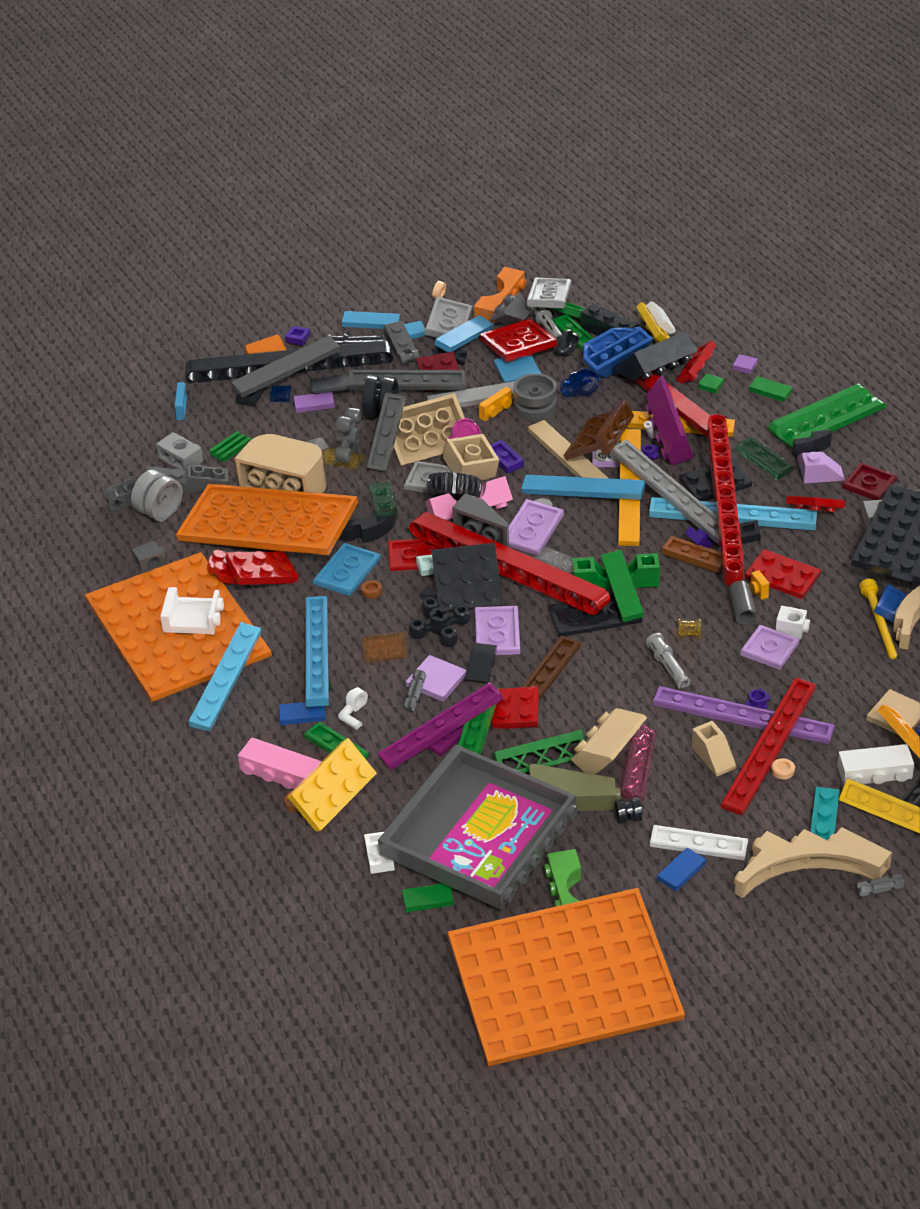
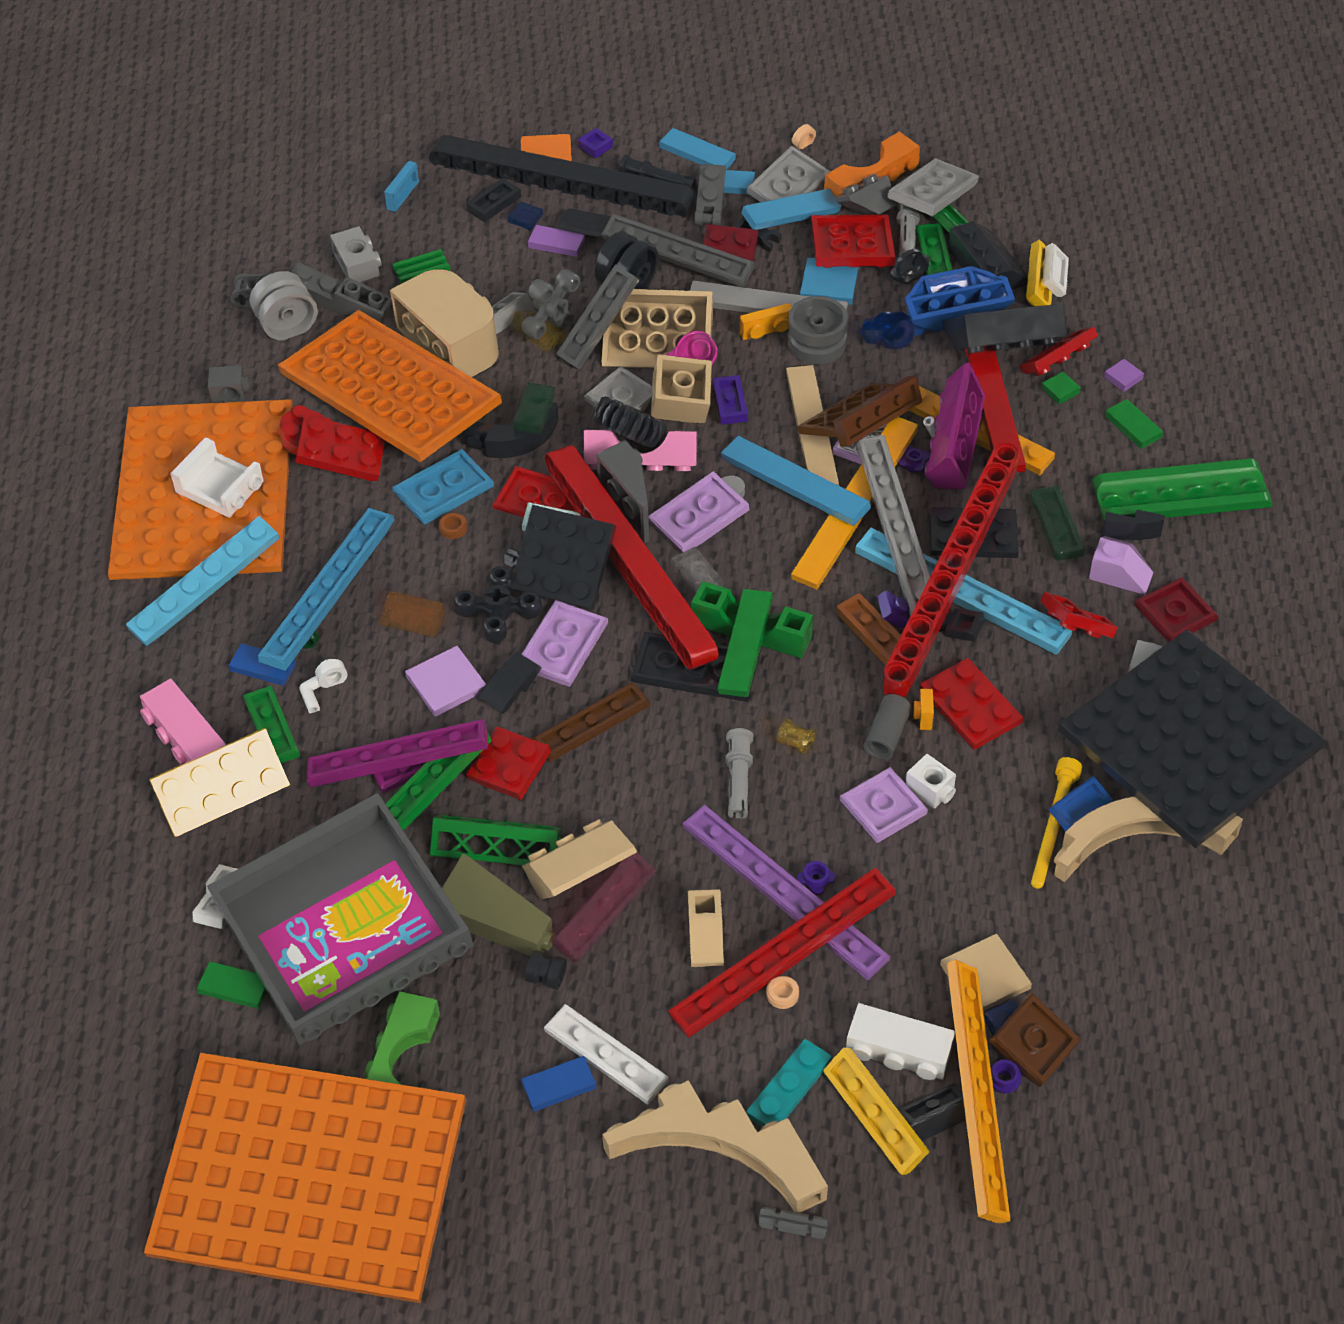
camera: 25 degrees right, 10 degrees up
(285, 366) = (545, 181): dark grey tile -> none
(414, 690) = (404, 688): dark grey axle -> none

